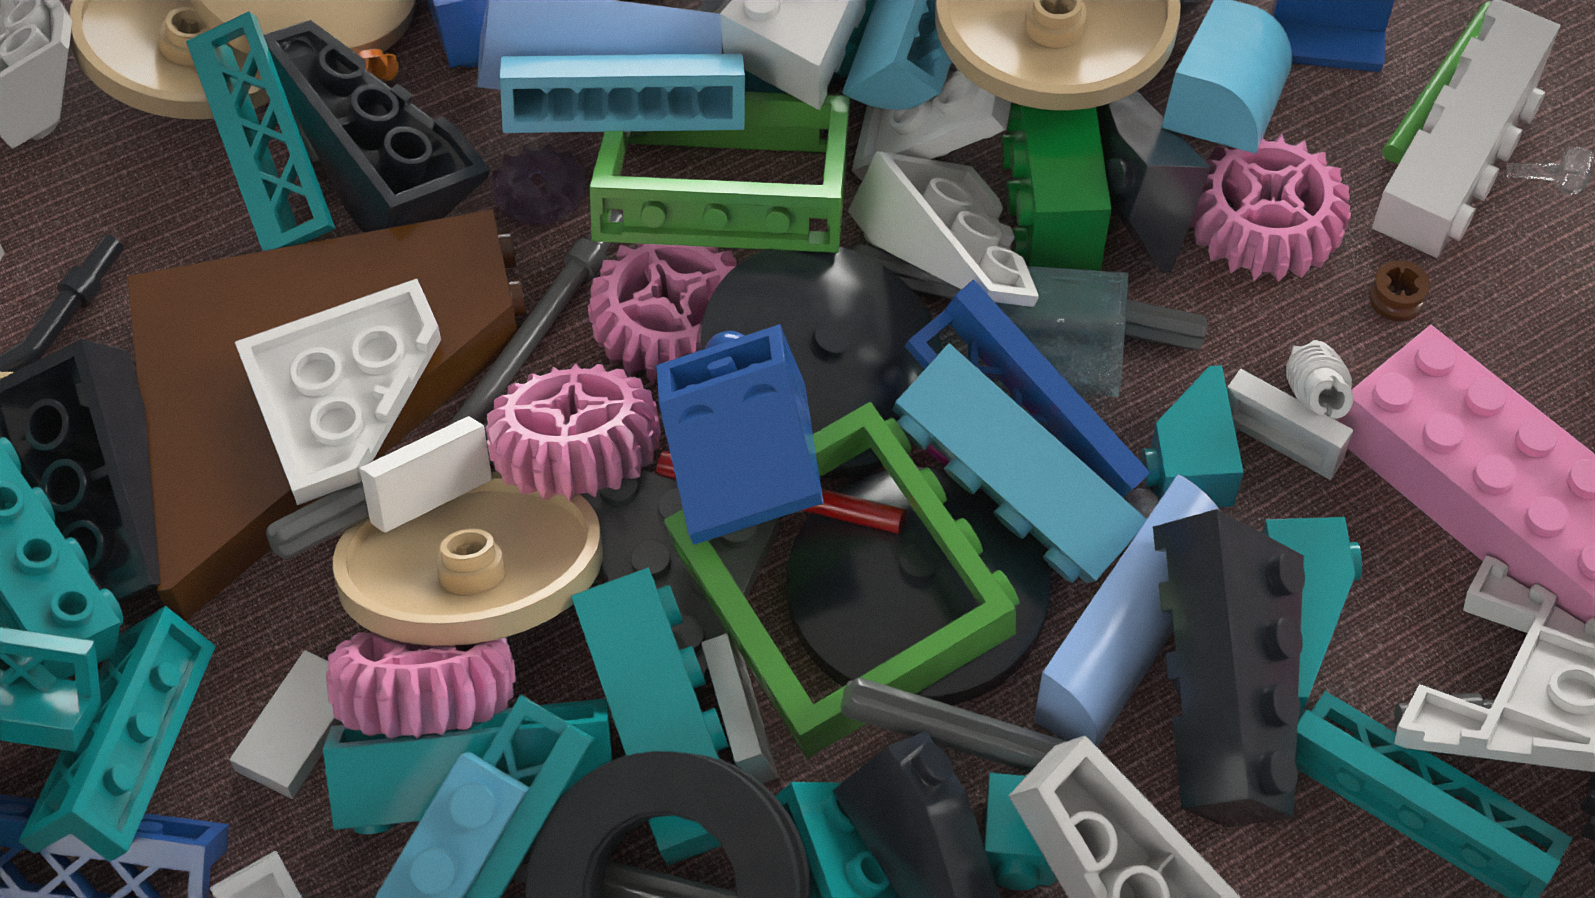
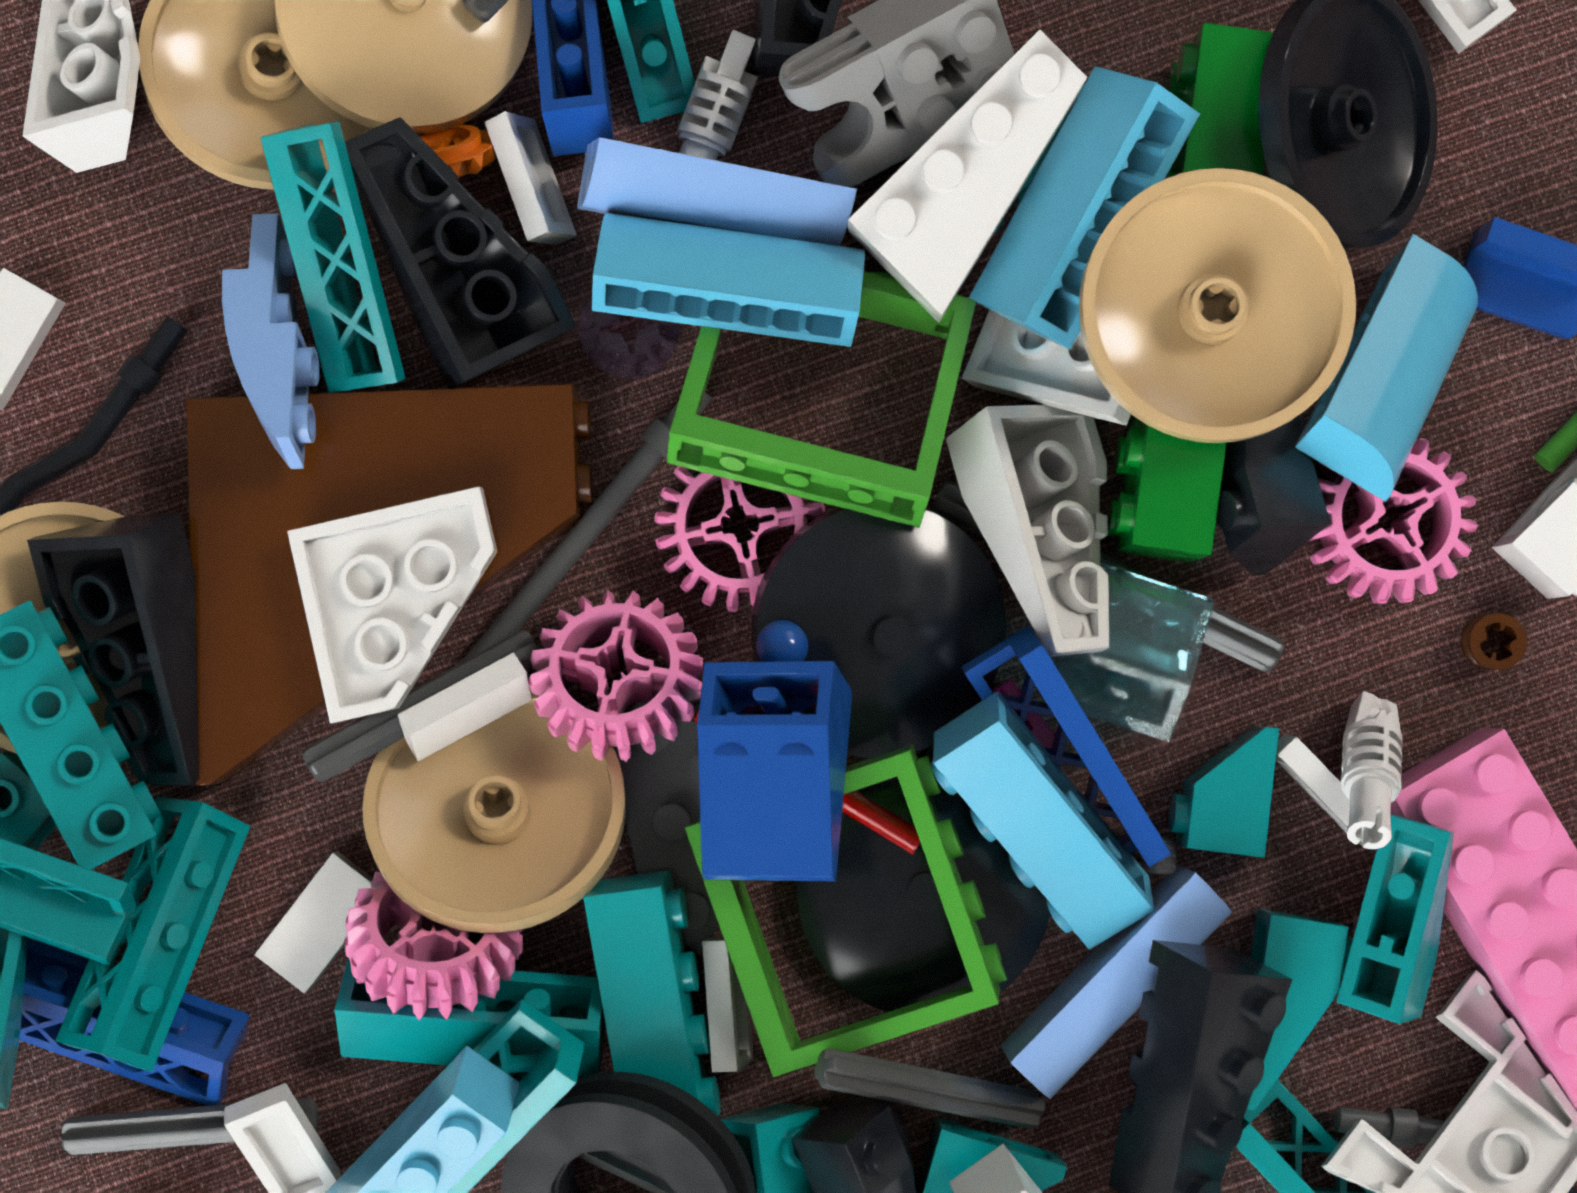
camera: 15 degrees right, 30 degrees up
(204, 218) = (268, 342): none -> light blue slope
(431, 81) = (530, 178): none -> white tile
(1393, 505) = (1399, 924): none -> teal slope

